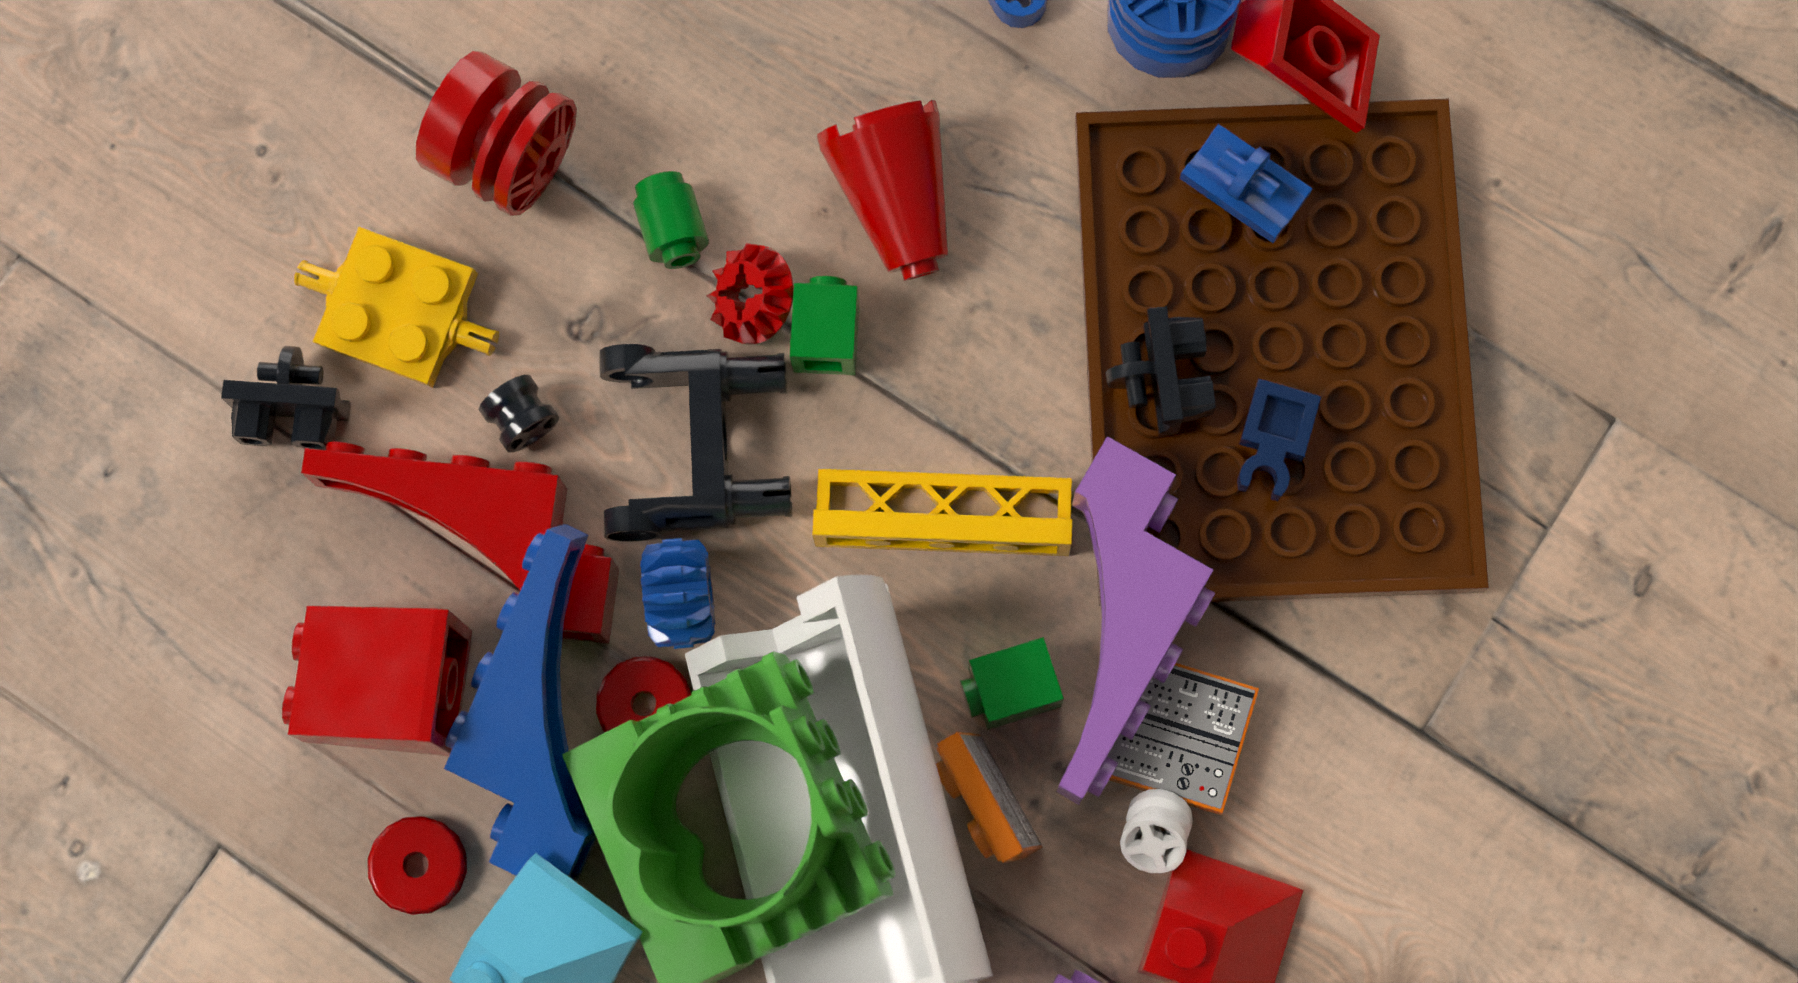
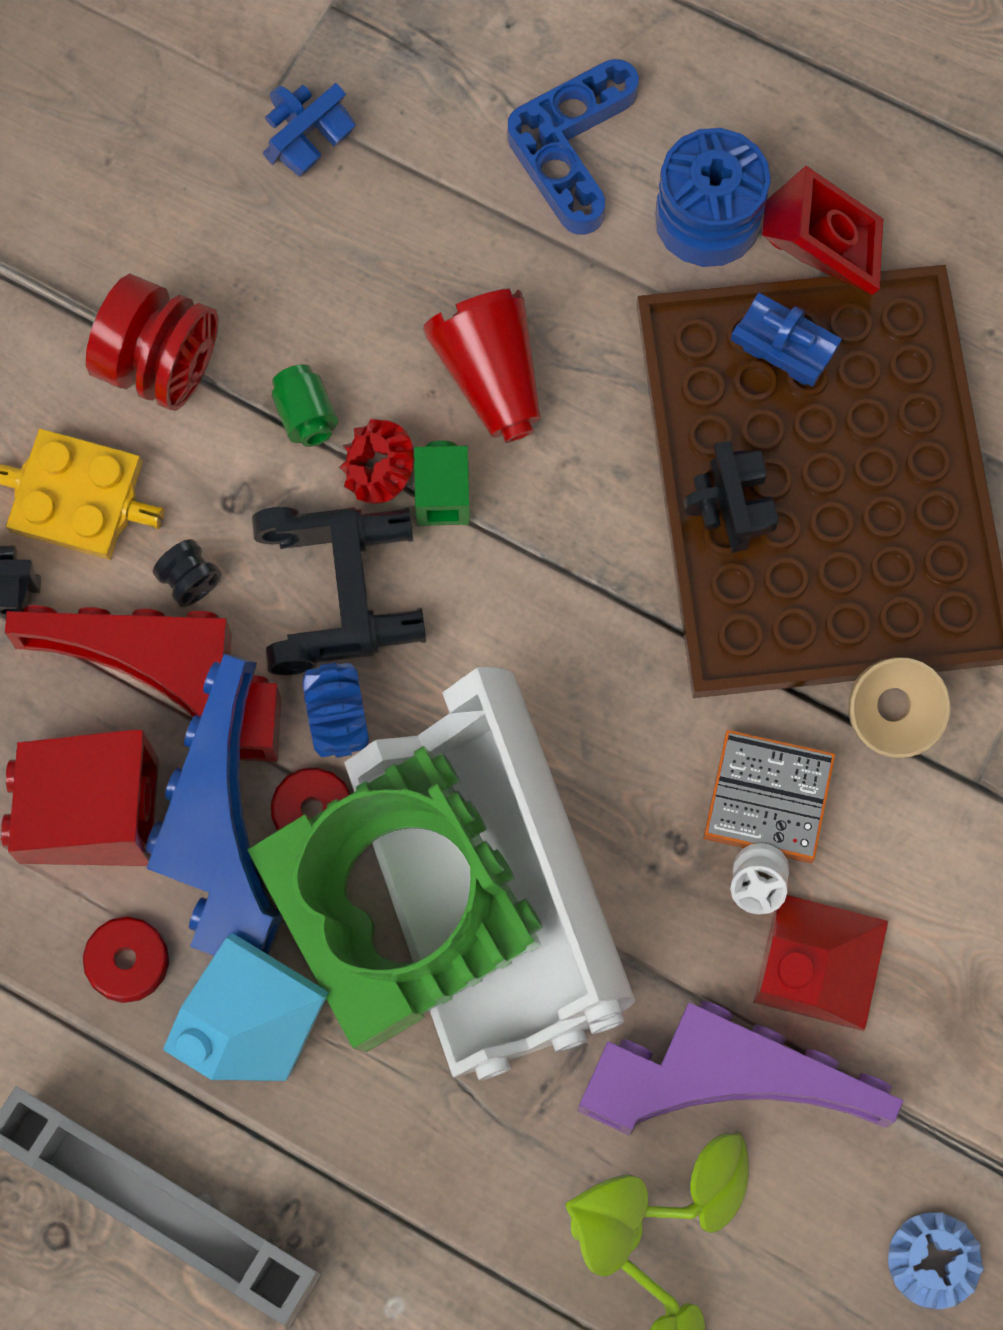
camera: 10 degrees left, 5 degrees down
(937, 530) = (555, 643): yellow fence -> none
(999, 821) = (601, 844): orange tile -> none
(1012, 684) = (626, 766): green brick -> none
(1143, 599) = (731, 682): medium lavender arch -> none
(1278, 428) = (831, 537): dark blue plate -> none
(1355, 665) = (924, 717): none -> tan piece

